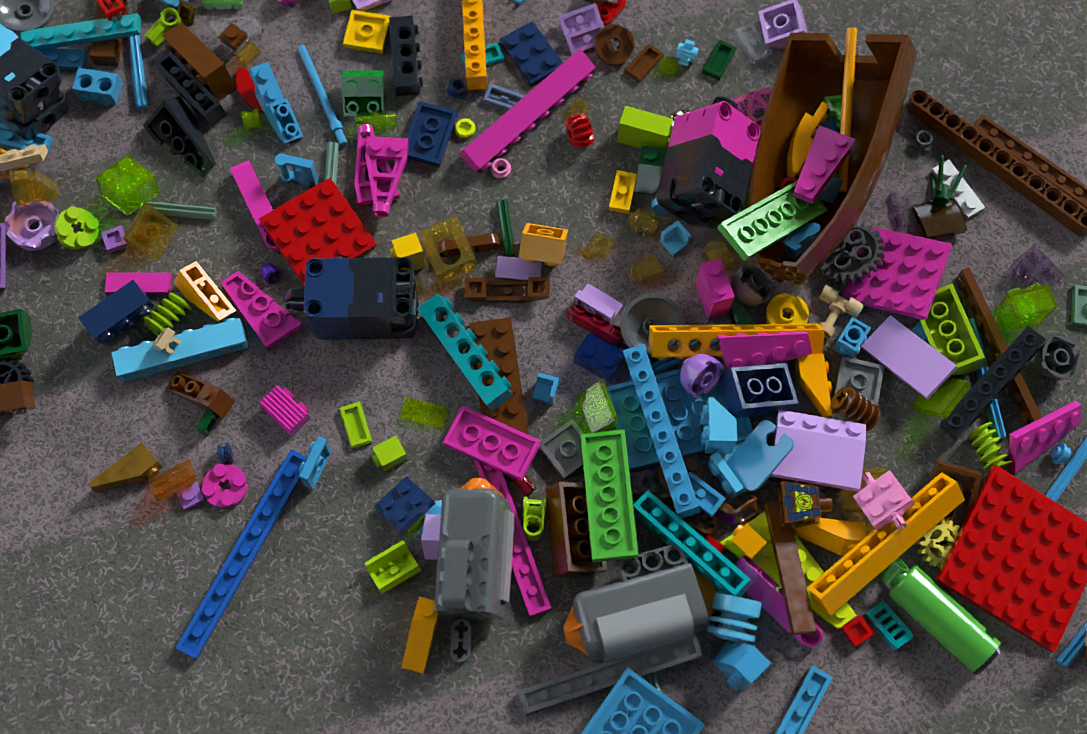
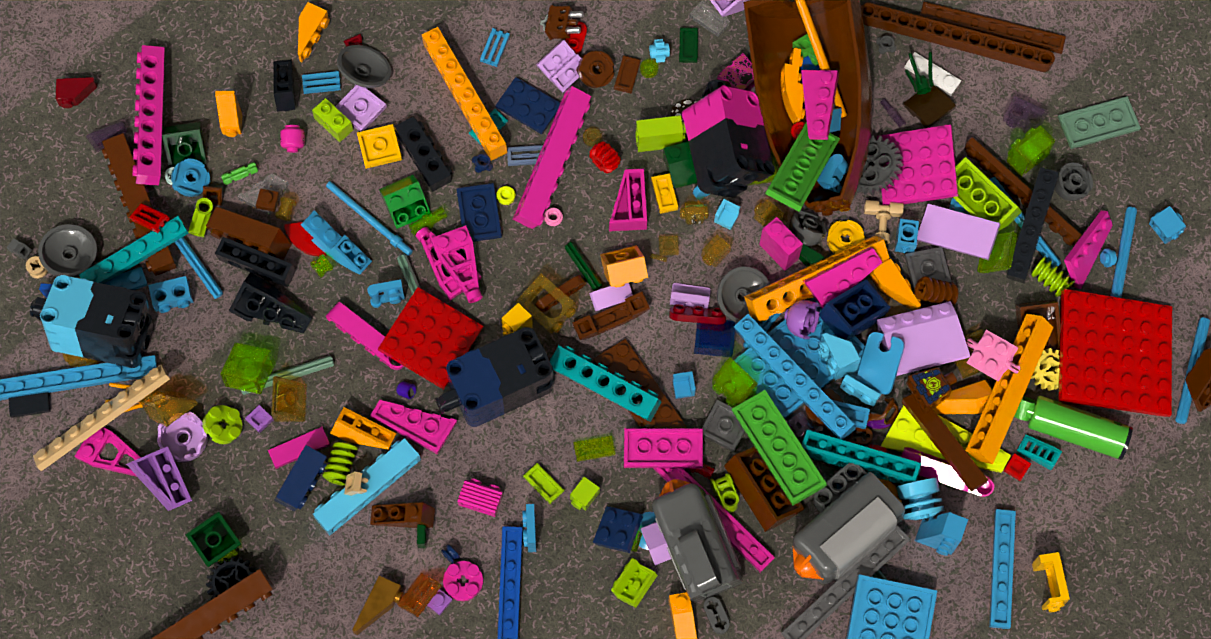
camera: 25 degrees left, 0 degrees up
(582, 186) = (630, 204): none -> dark pink wedge
(748, 540) = (903, 434): light orange brick -> none

